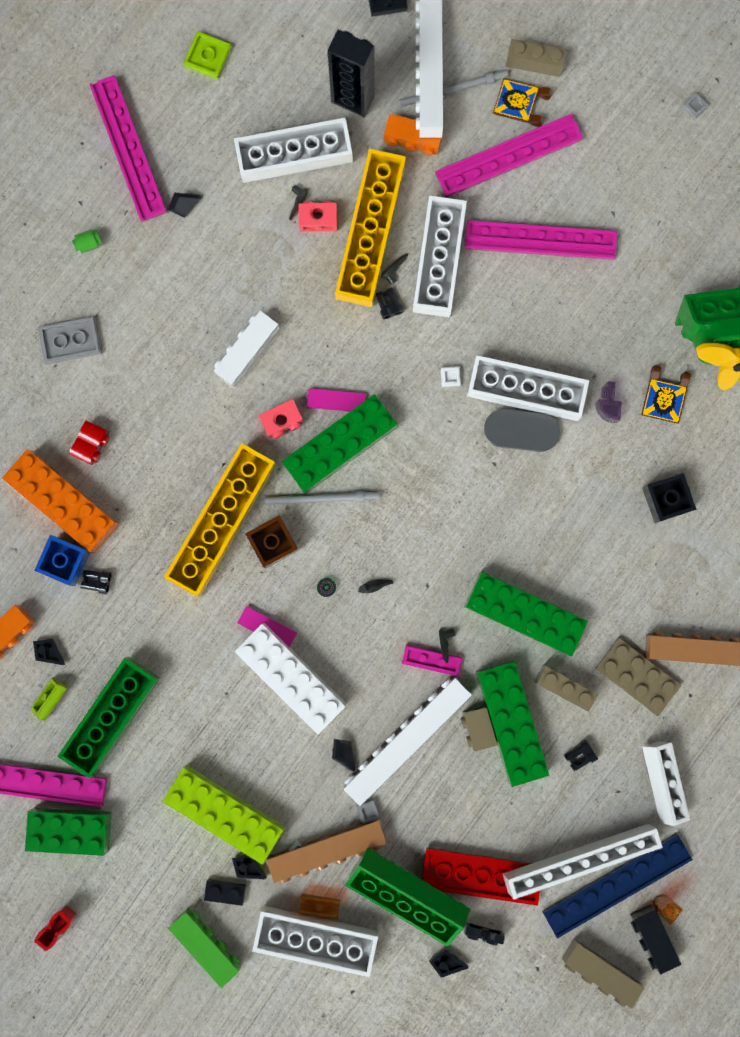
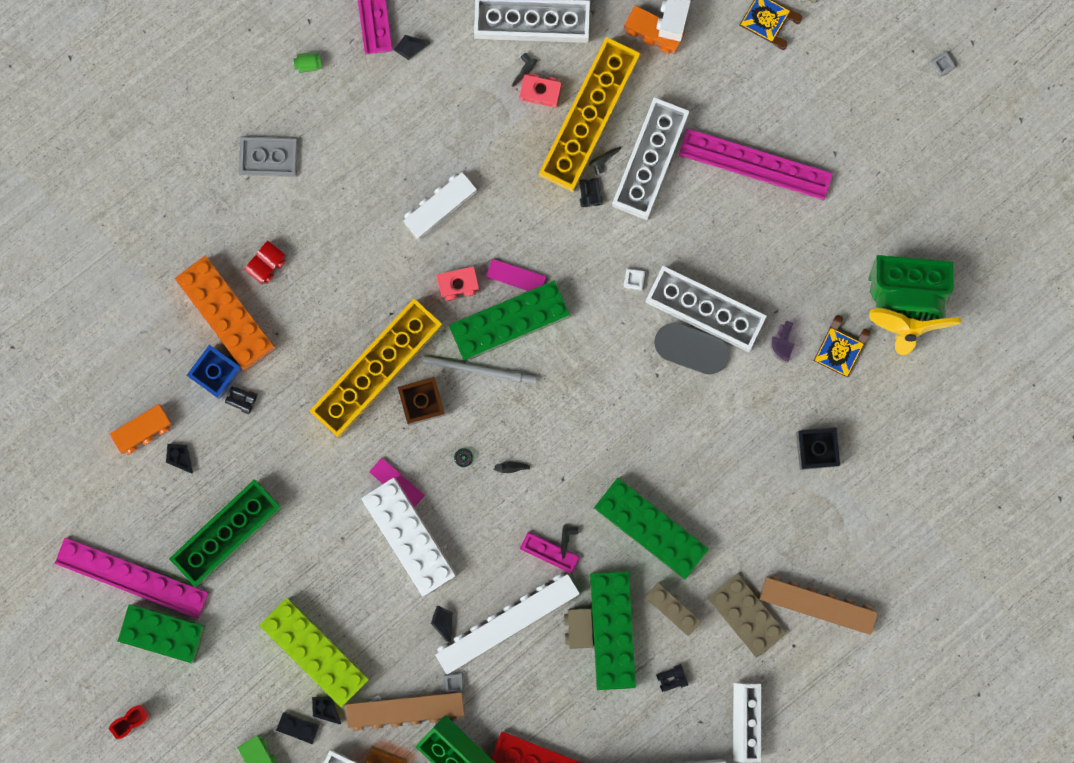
camera: 15 degrees right, 0 degrees up
(48, 698) = (170, 502): lime brick -> none
(508, 155) = (744, 72): dark pink plate -> none

